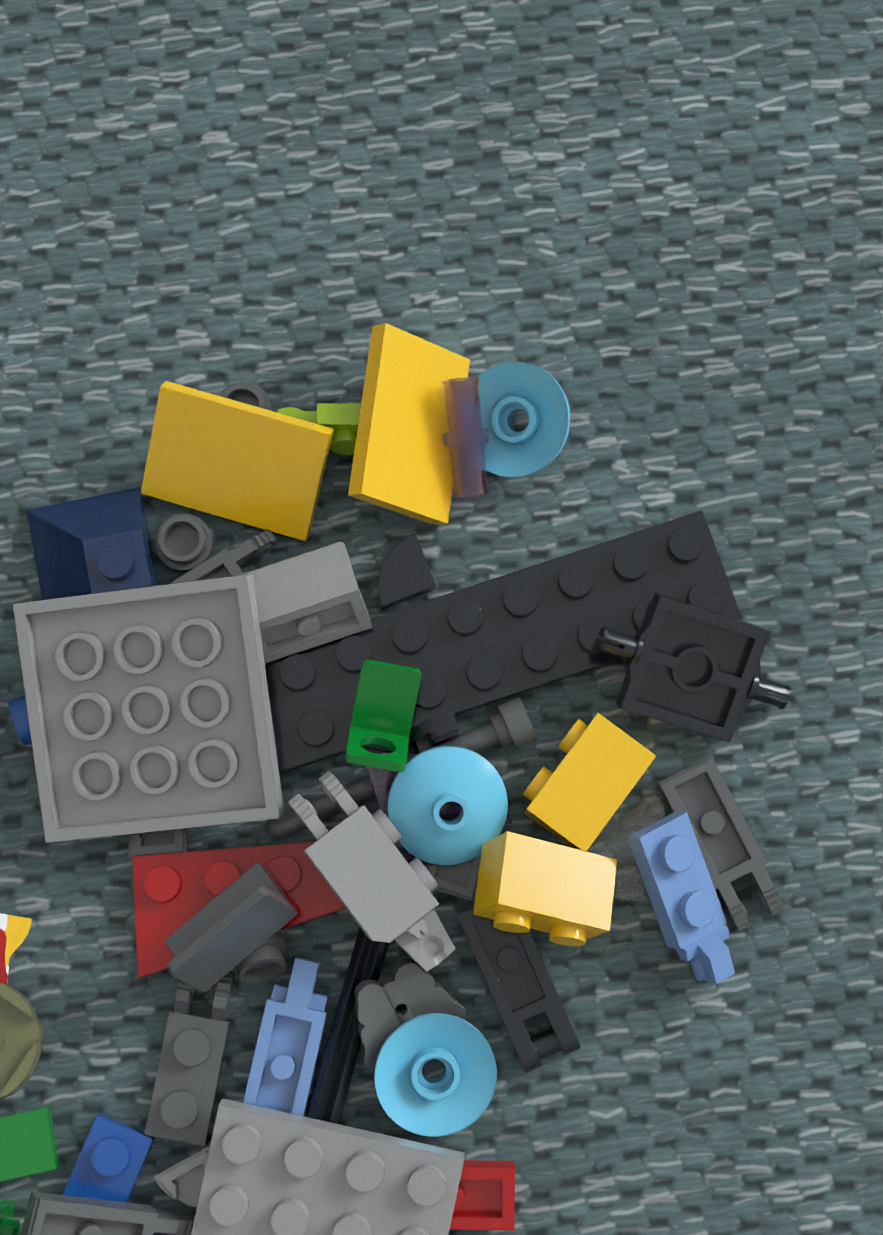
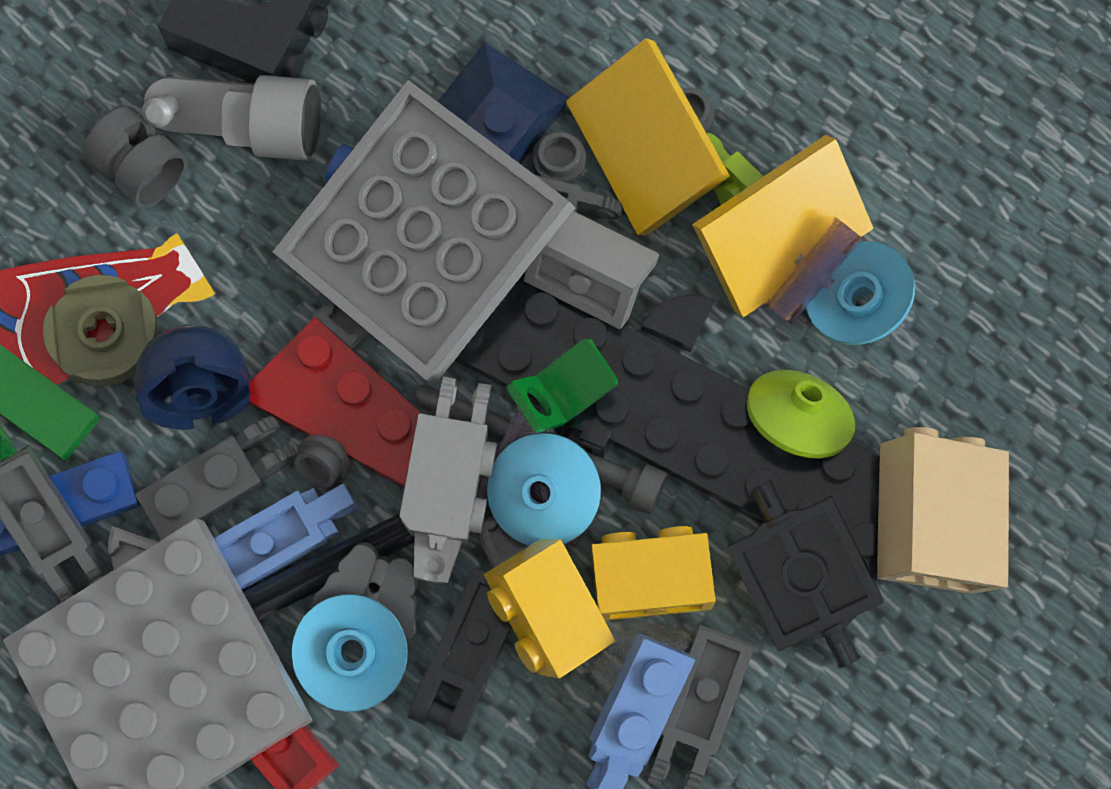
camera: 50 degrees right, 5 degrees down
(89, 1002) = (190, 377): none -> dark blue cylinder
(229, 928) = (321, 418): dark grey panel -> none
(566, 553) = (800, 414): none -> lime dish
(740, 521) = (943, 512): none -> tan brick

